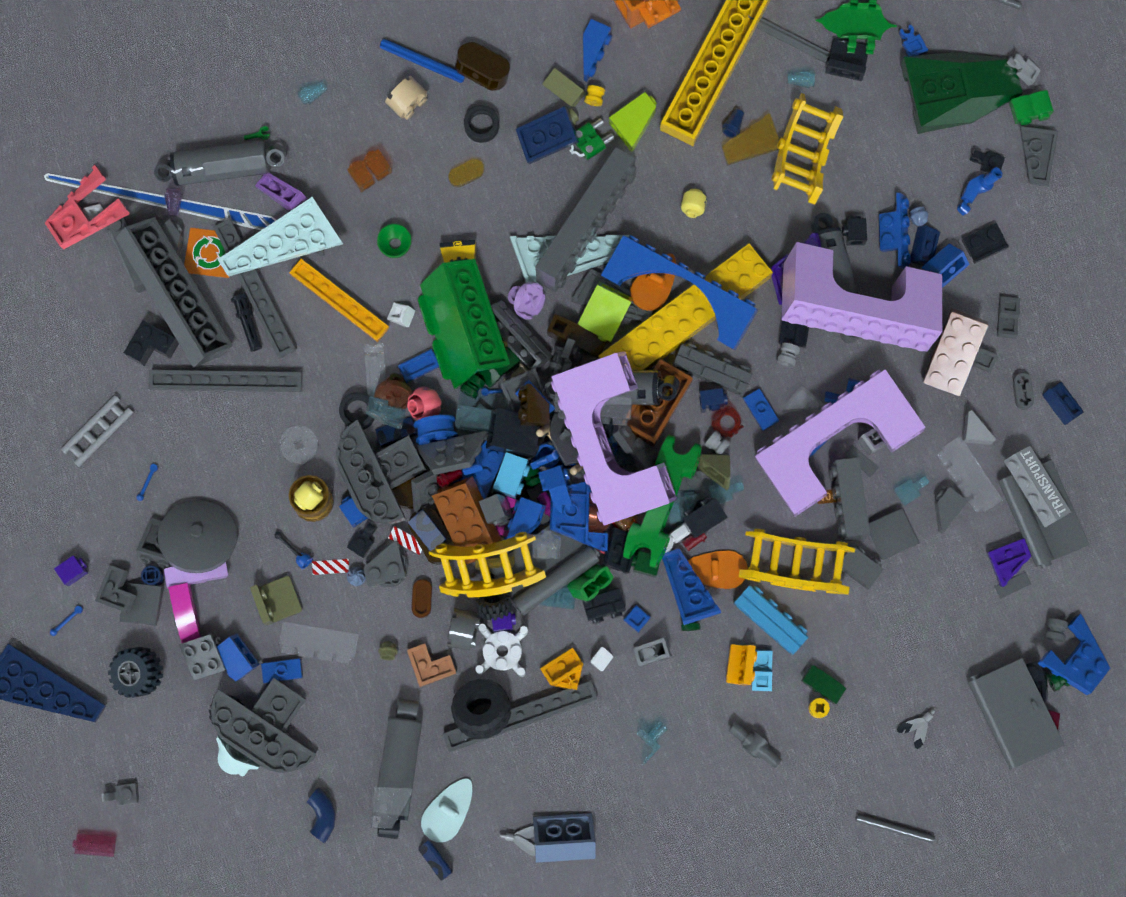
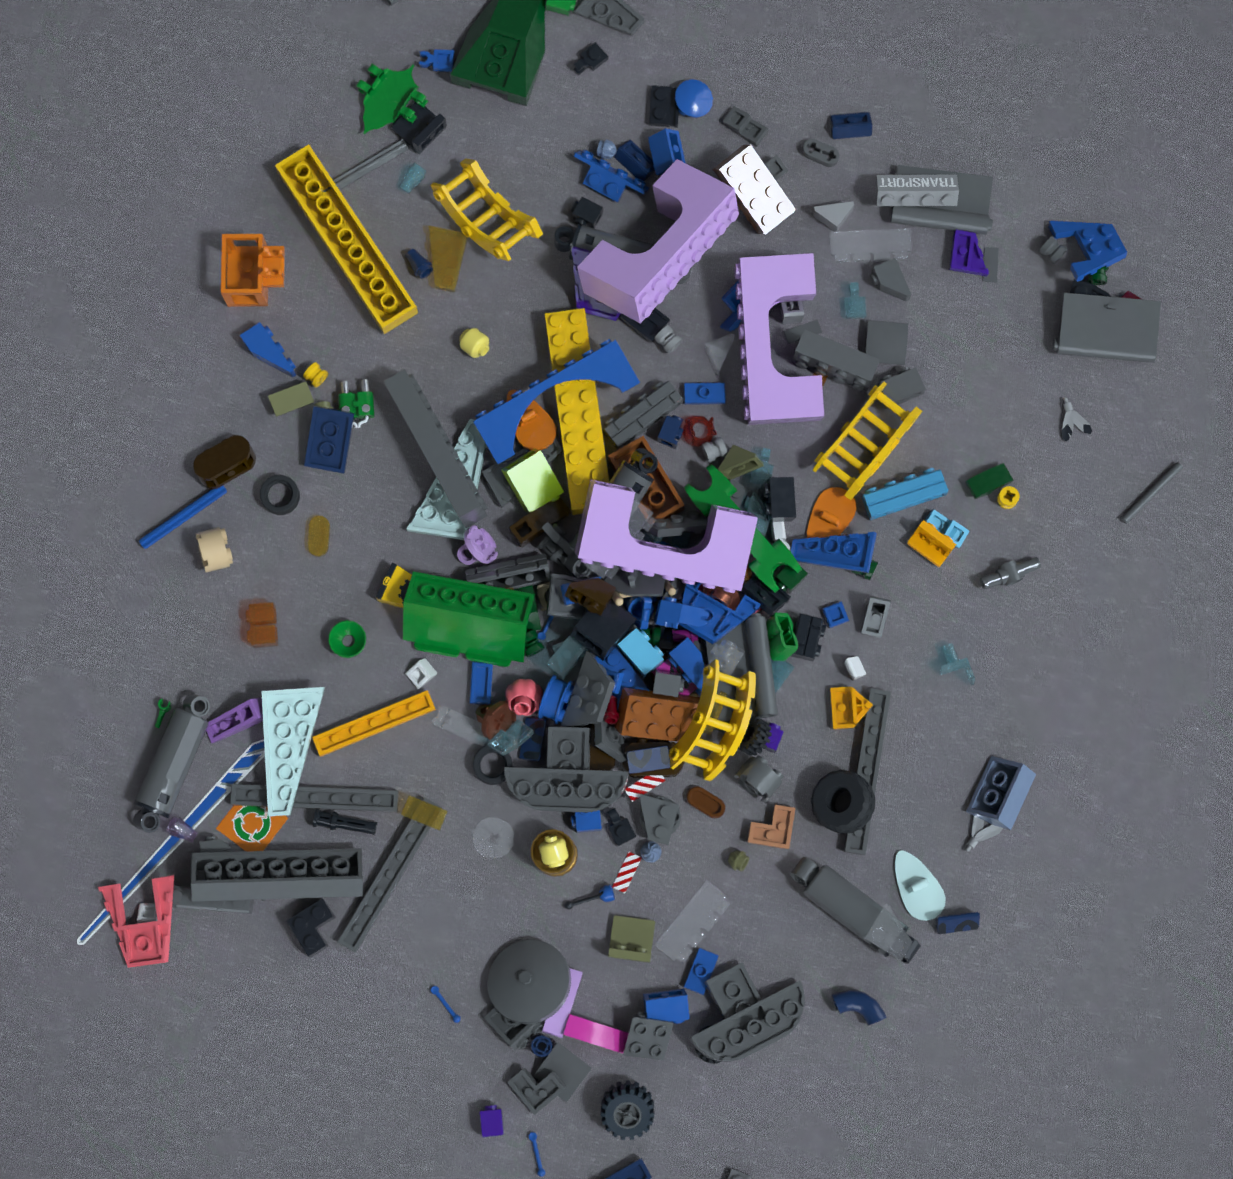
camera: 65 degrees left, 0 degrees up
(97, 442) = (378, 1032): light grey bar -> none
(232, 760) = (763, 1061): light aqua hat -> none
(287, 379) = (424, 813): none -> clear yellow tile
(312, 92) = (151, 640): clear light blue cone -> none
(499, 639) = (804, 744): white plate -> none
(633, 119) = (361, 353): lime slope -> none
(690, 542) = (792, 527): dark red pin -> none
(977, 186) = (608, 81): blue arm -> none
(1005, 262) = (693, 98): none -> blue dish

